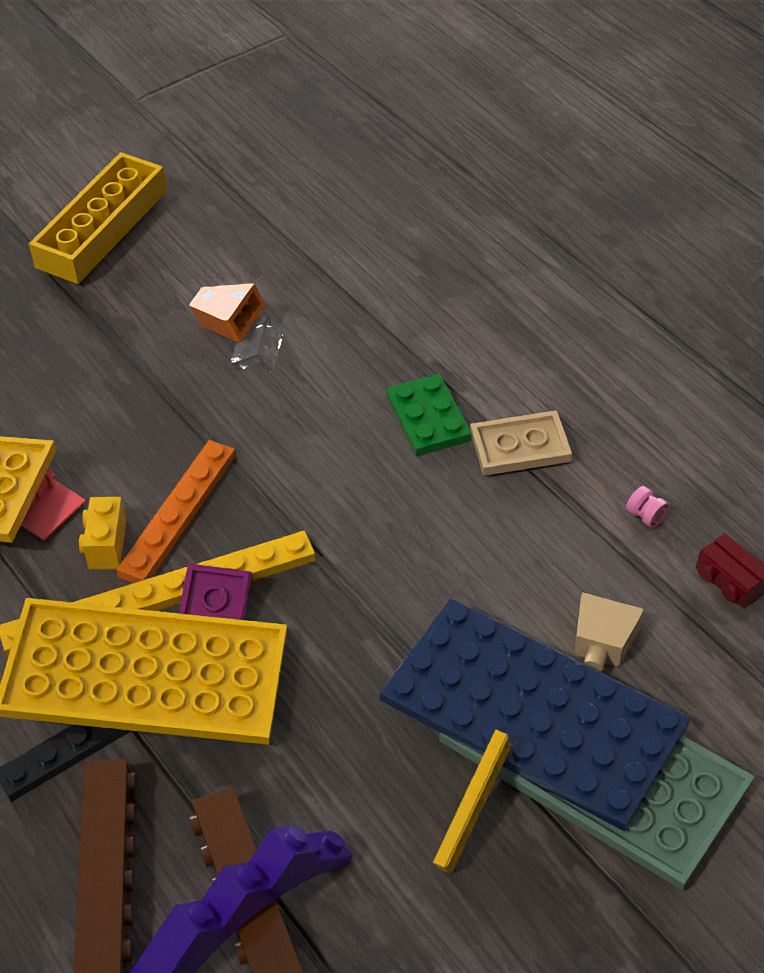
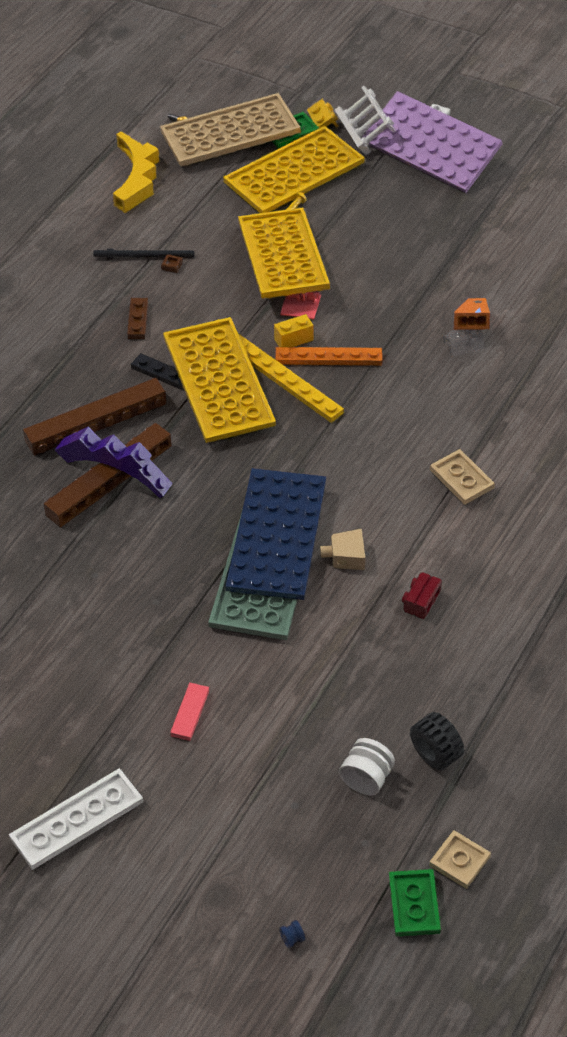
camera: 65 degrees right, 0 degrees up
(98, 218) = (514, 234): yellow brick -> none
(215, 592) = (279, 388): magenta plate -> none
(428, 415) = (460, 431): green plate -> none
(473, 802) = (207, 522): yellow tile -> none
(648, 507) = (446, 546): bright pink wheel -> none

